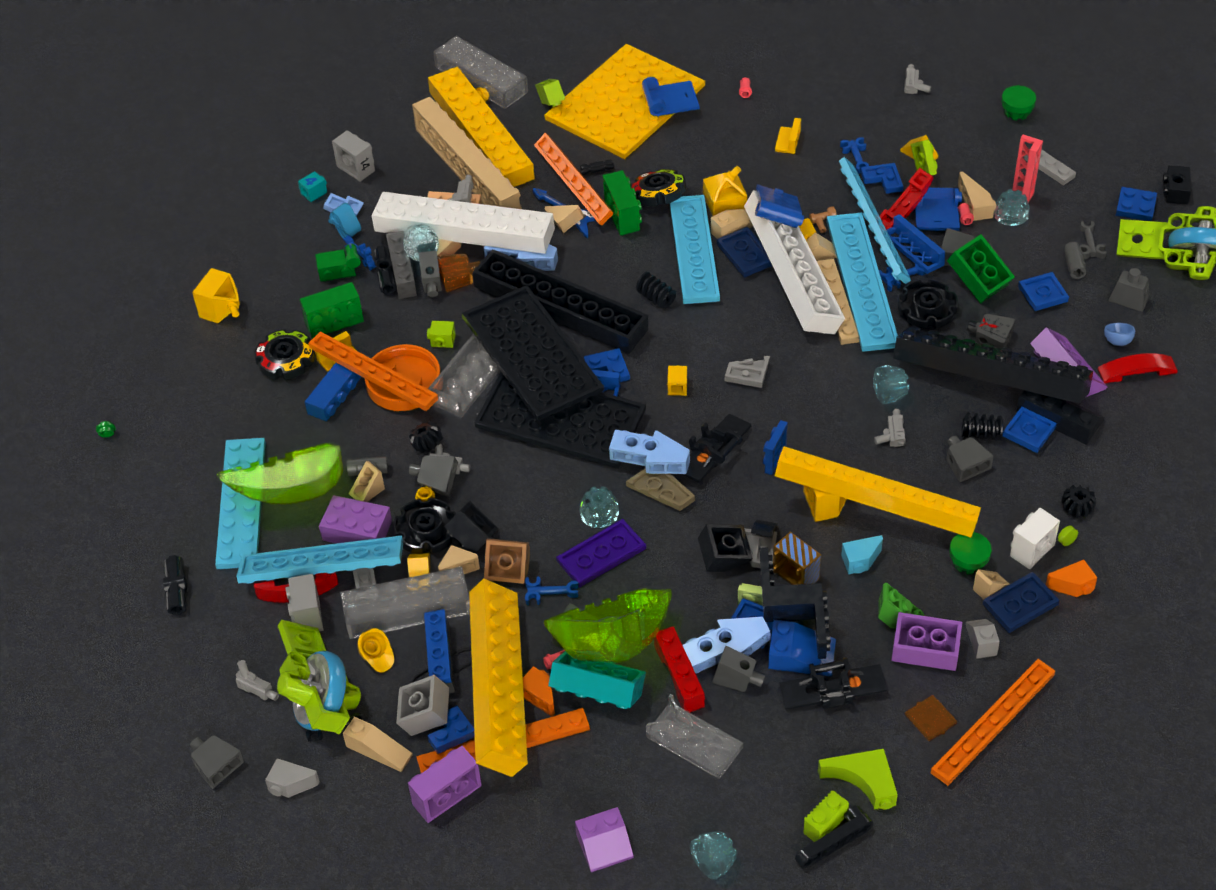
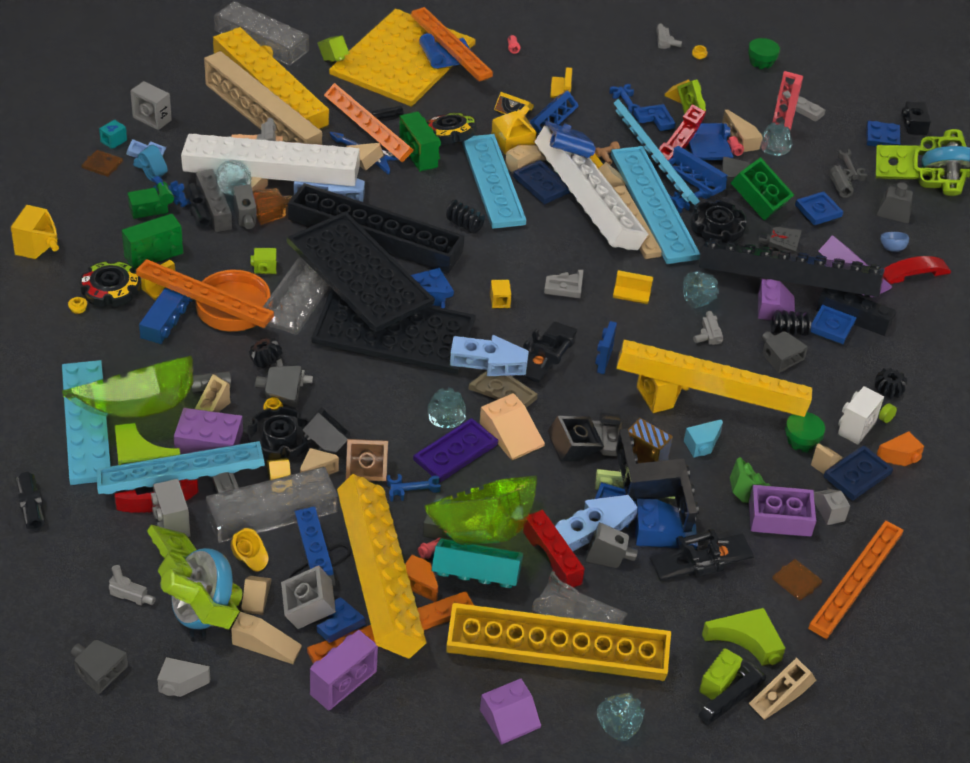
camera: 15 degrees left, 5 degrees down
(251, 376) = (77, 305): none -> yellow plate
(281, 536) = (134, 448): none -> lime arch
(298, 218) = (102, 163): none -> clear orange piece
(375, 696) = (255, 594): none -> tan slope
(661, 531) = (512, 426): none -> light nougat slope
(664, 770) = (559, 641): none -> yellow brick
(675, 89) = (452, 44): none -> orange plate
(728, 160) = (508, 103): none -> panel
(773, 165) = (558, 102): none -> blue fence
(820, 378) = (633, 287): none -> yellow panel
(888, 838) = (783, 689): none -> tan slope
(948, 99) = (699, 52): none -> yellow plate
(971, 397) = (774, 297): none -> medium lavender slope

